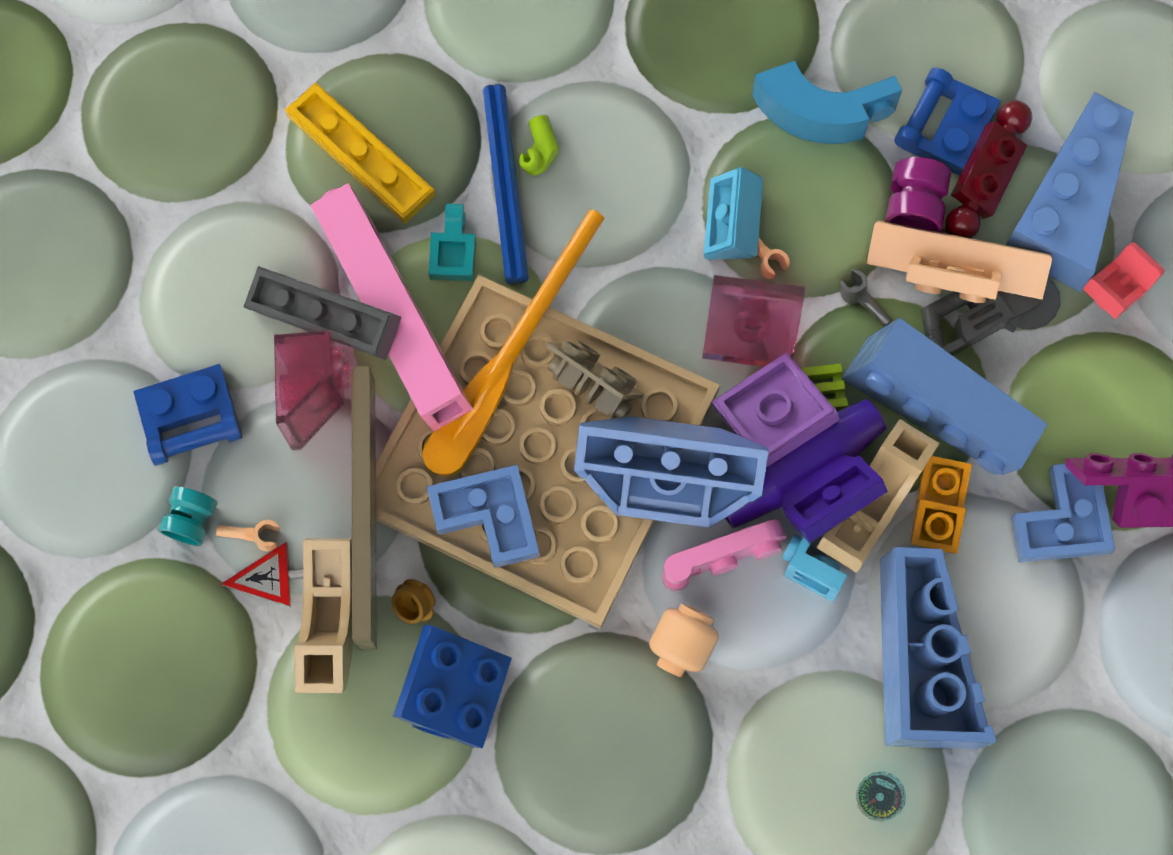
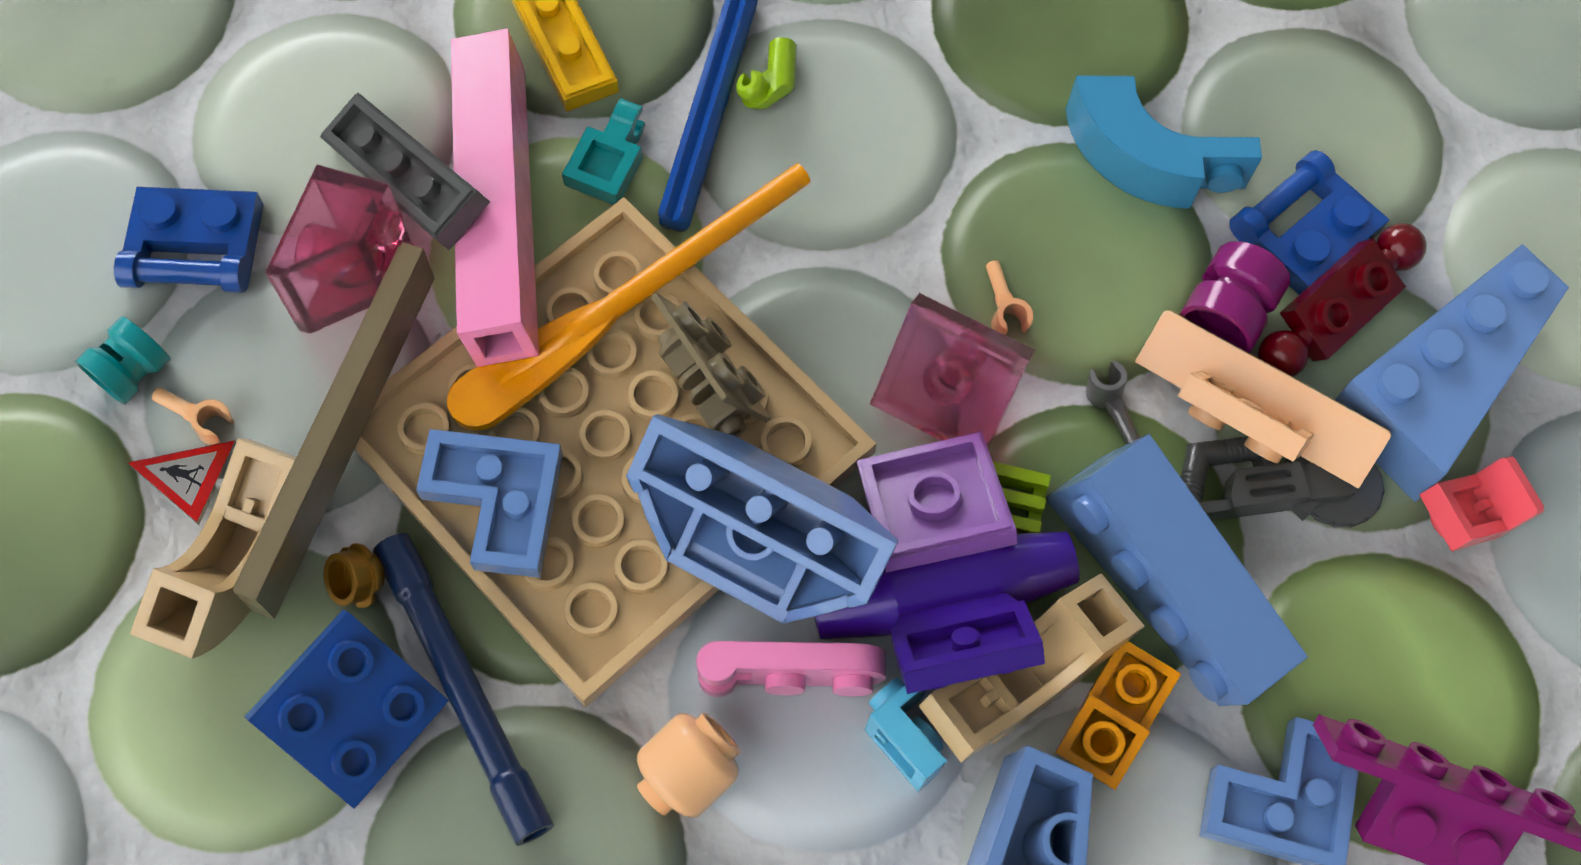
camera: 15 degrees right, 5 degrees down
(572, 693) = (508, 780): none -> dark blue piece
(733, 215) = (983, 241): medium azure slope -> none

